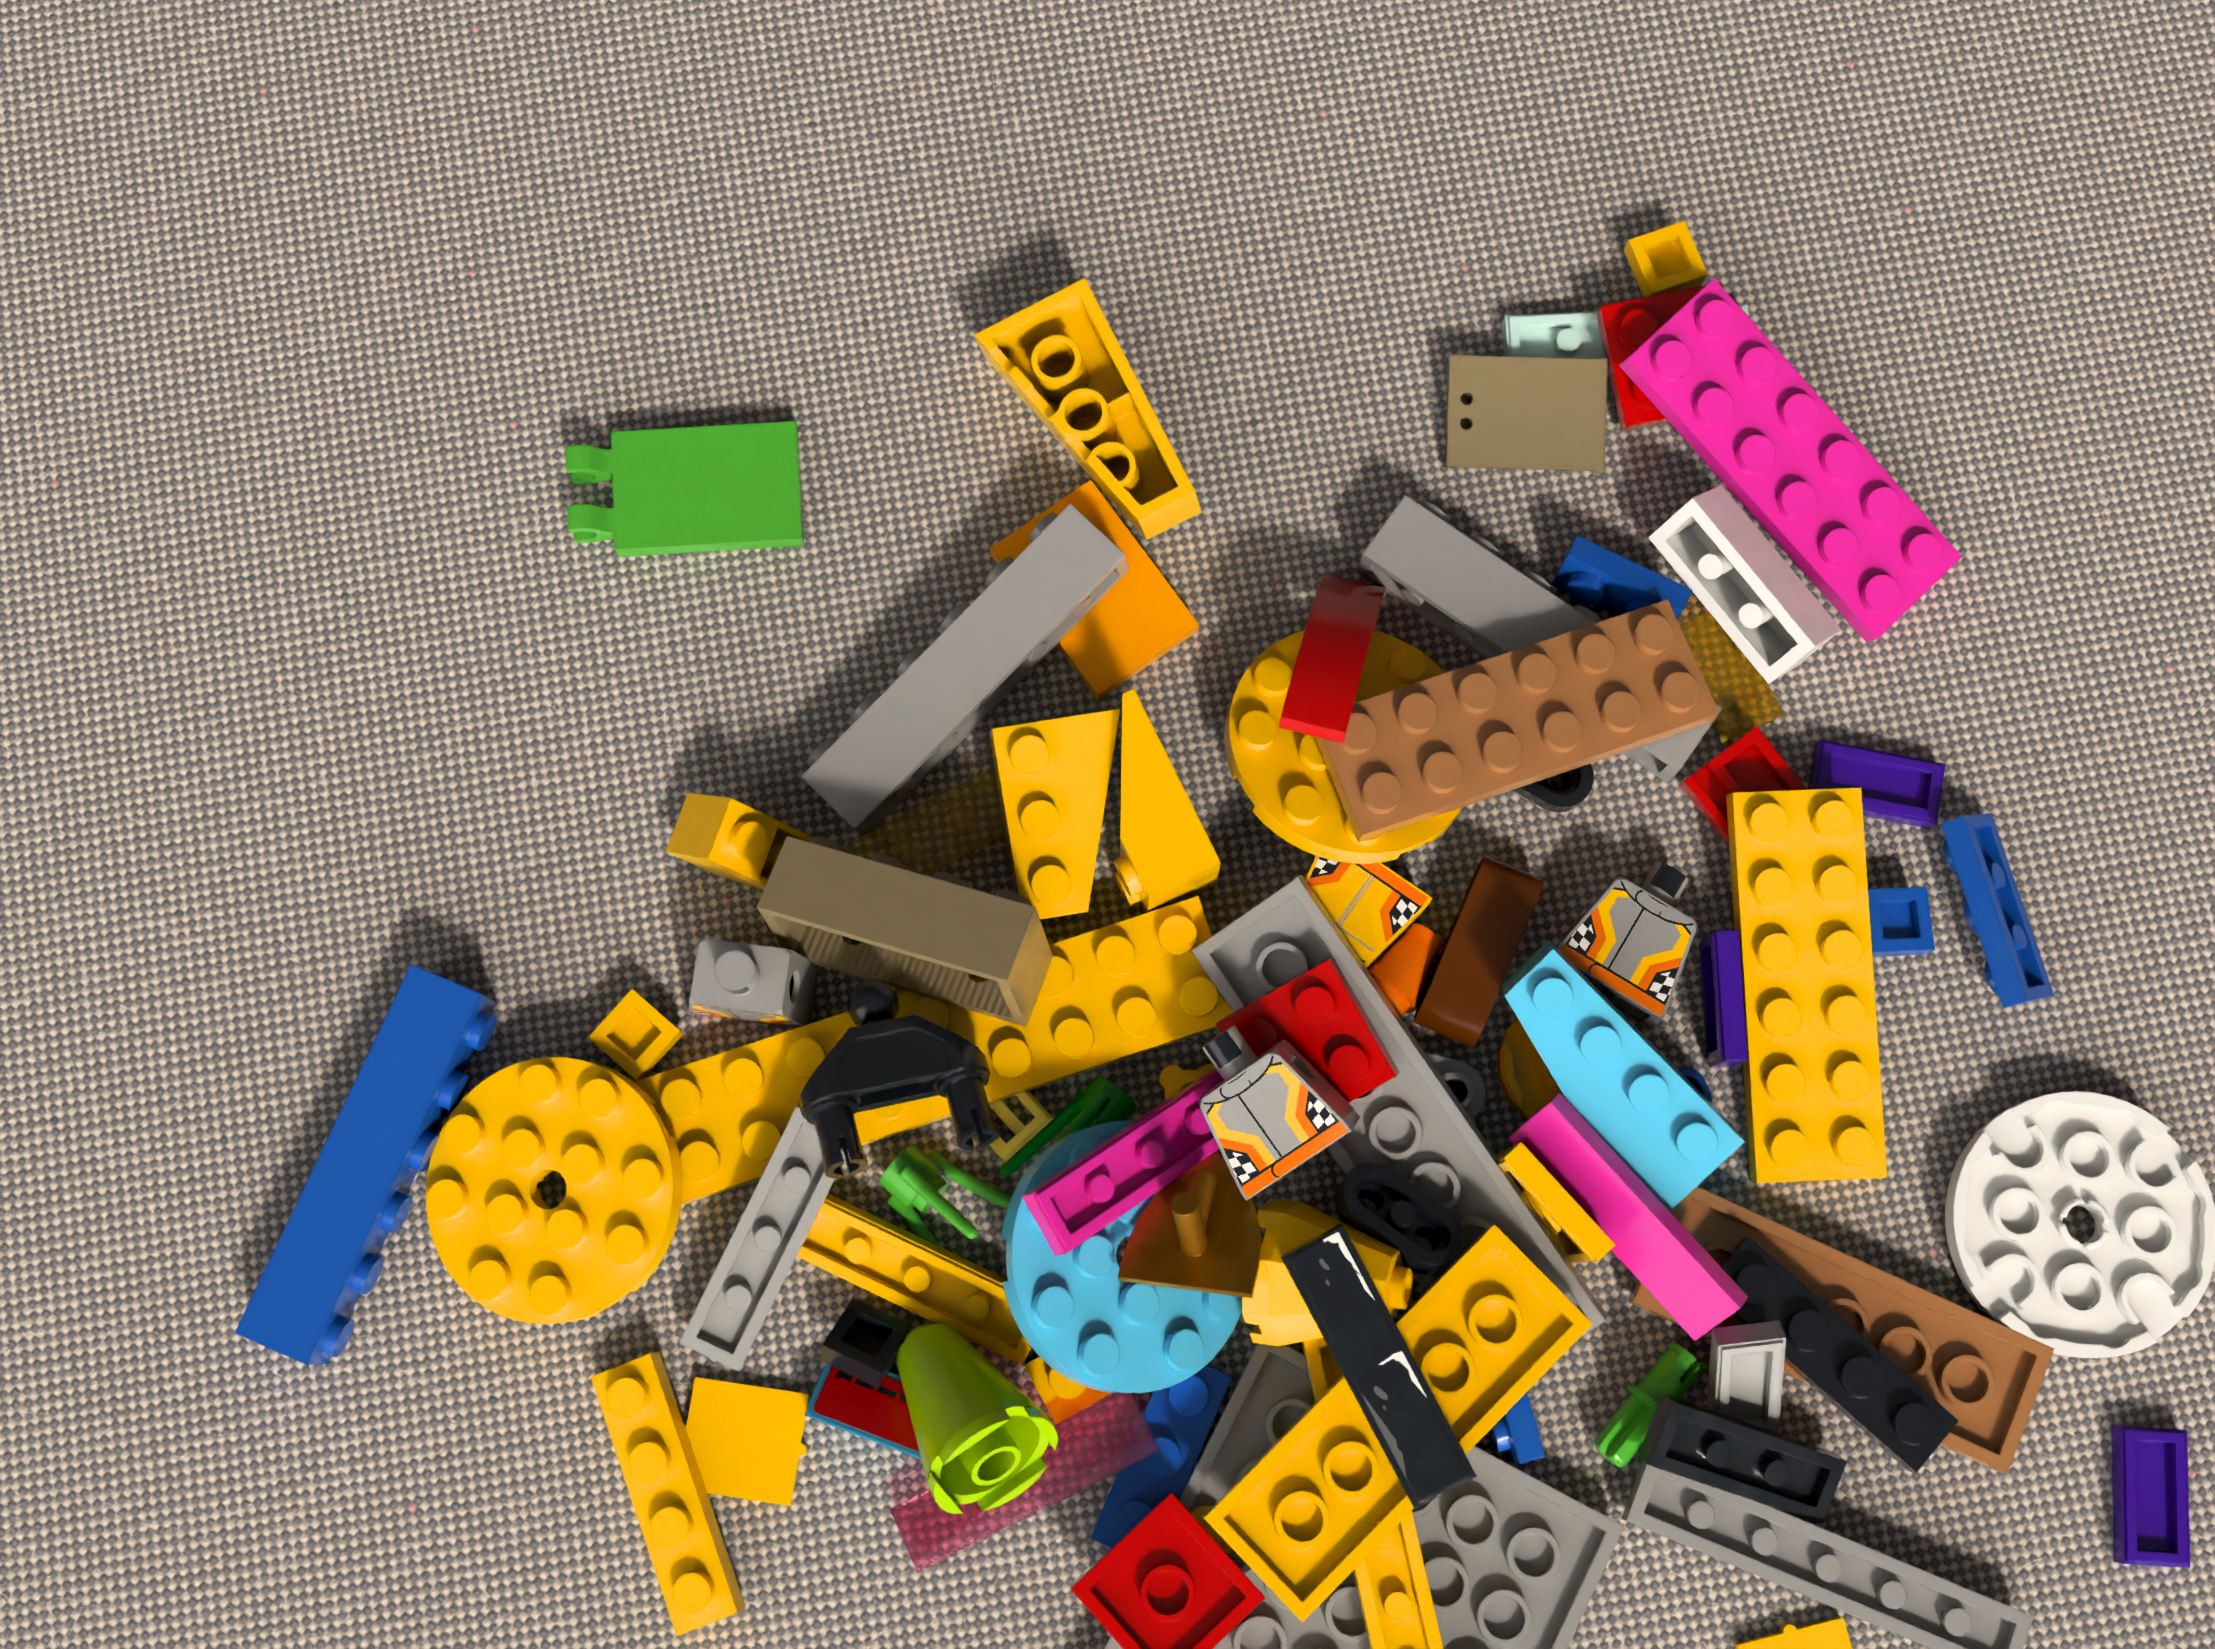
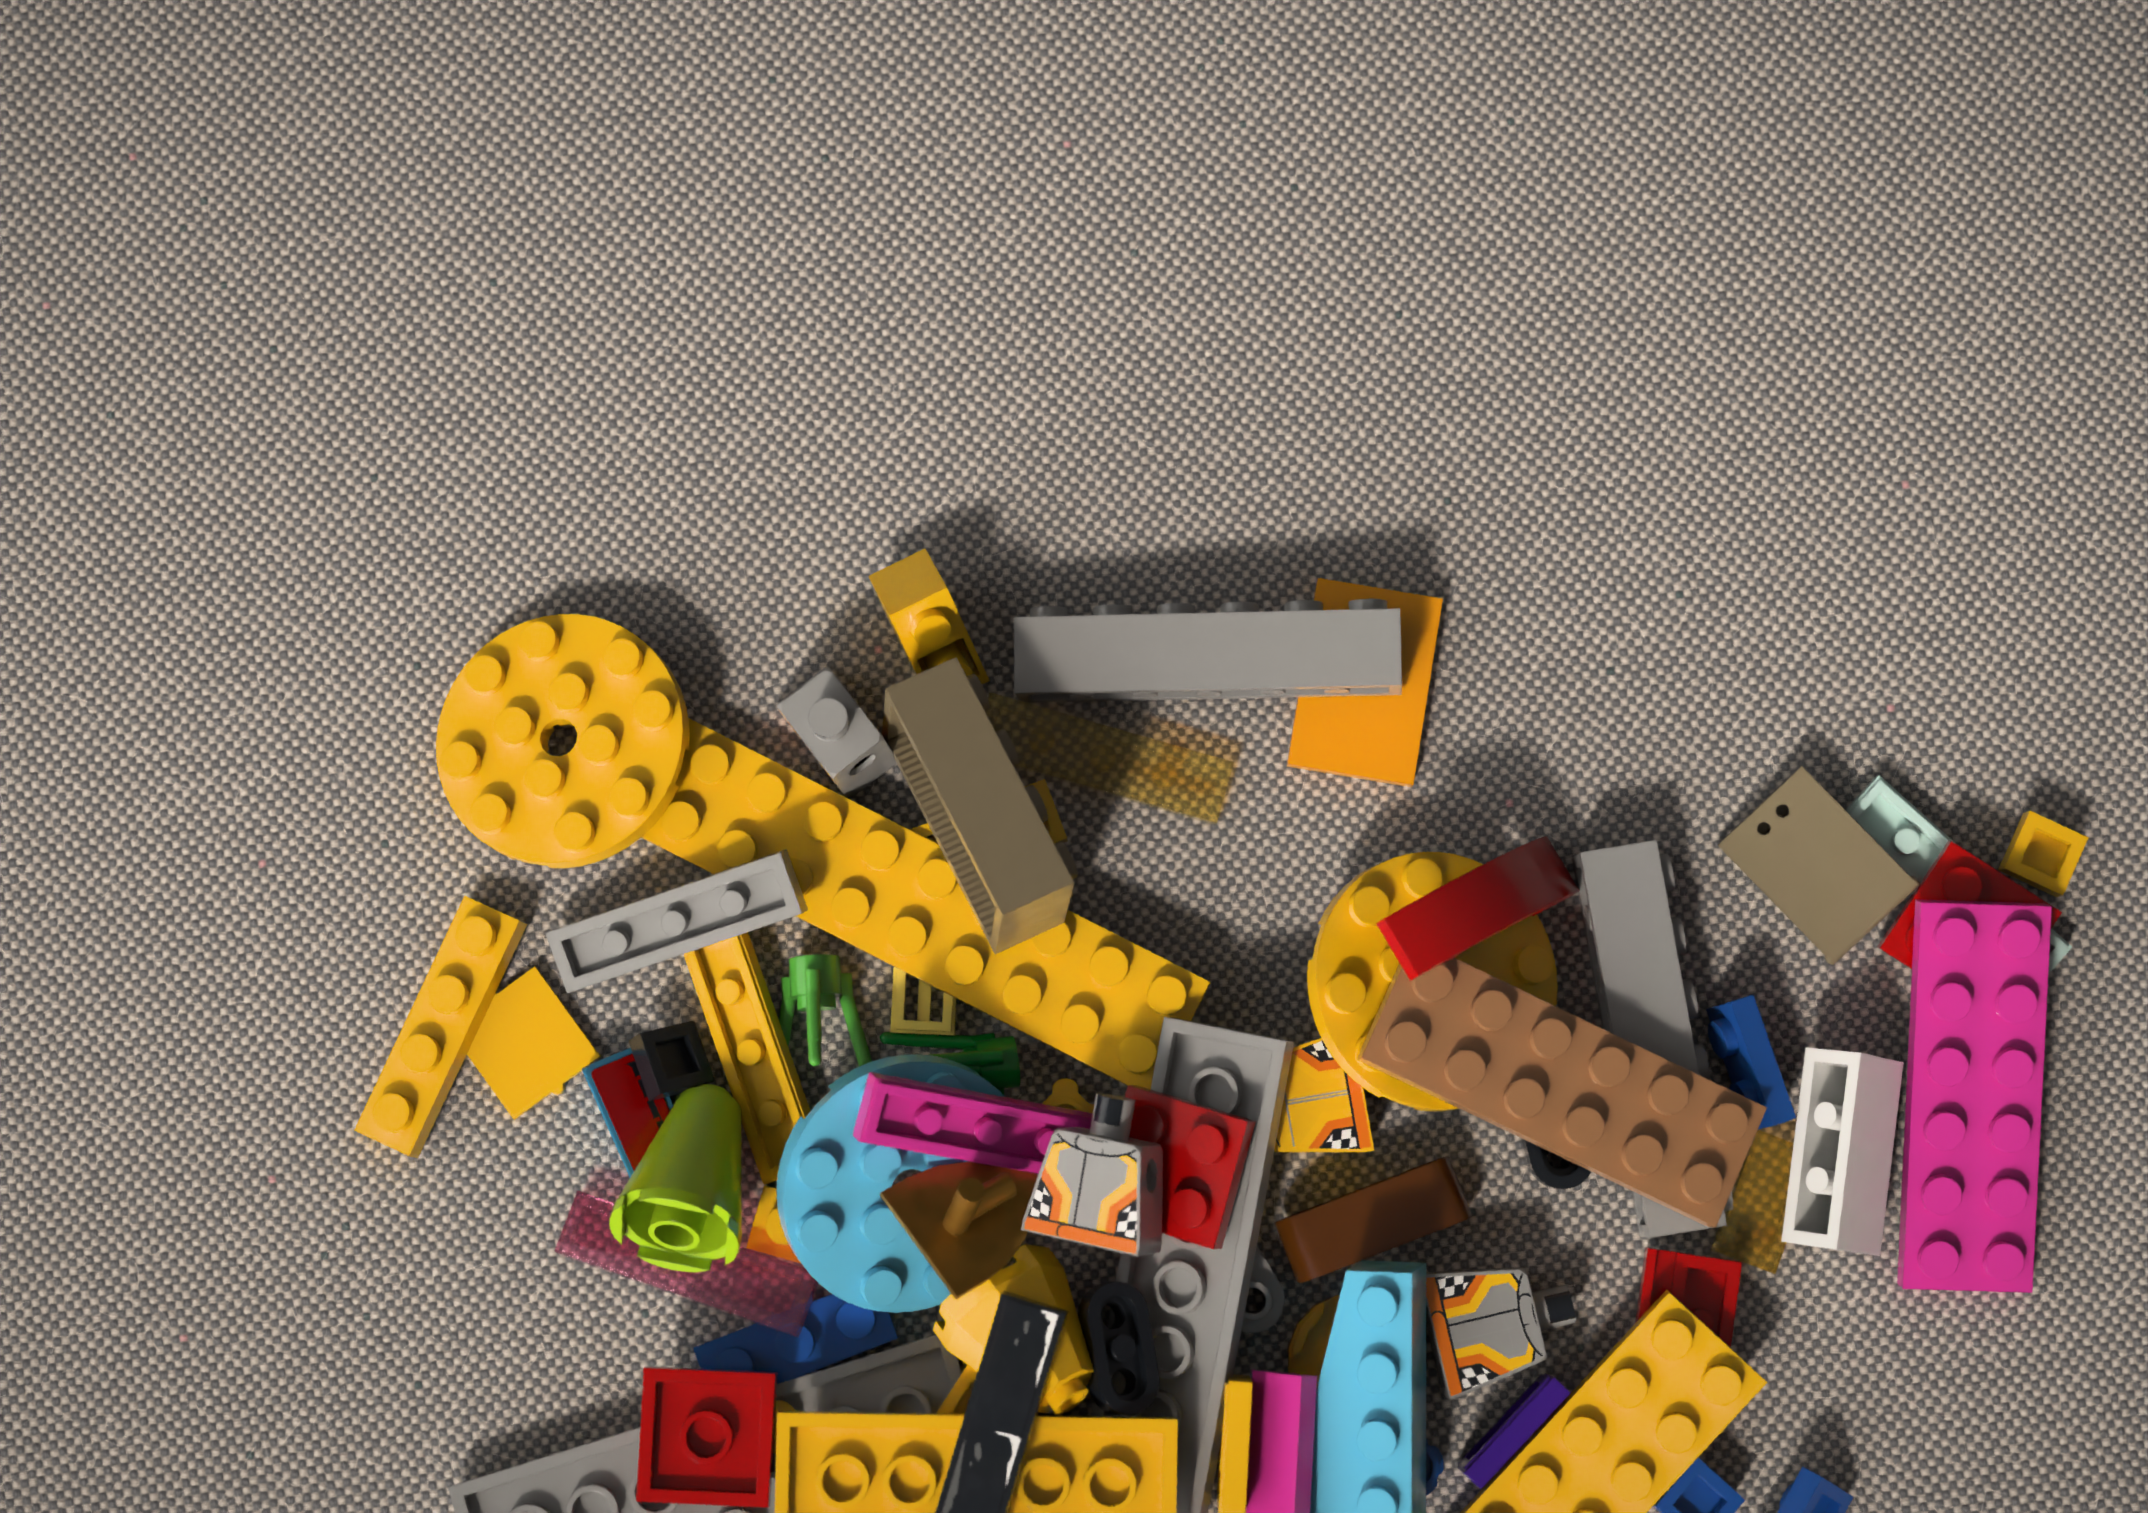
camera: 45 degrees right, 5 degrees up
(368, 1168) = (453, 598): blue brick -> none
(635, 1035) = (722, 686): yellow plate -> none
(692, 489) = (1149, 323): bright green tile -> none
(891, 1064) = (872, 887): black connector -> none
(1053, 805) = (1170, 817): yellow wedge -> none
(1086, 394) = (1501, 536): yellow wedge -> none
(1161, 837) = (1226, 905): yellow slope -> none
(1405, 967) = (1306, 1179): orange cone -> none
(1891, 784) = (1795, 1392): dark purple tile -> none

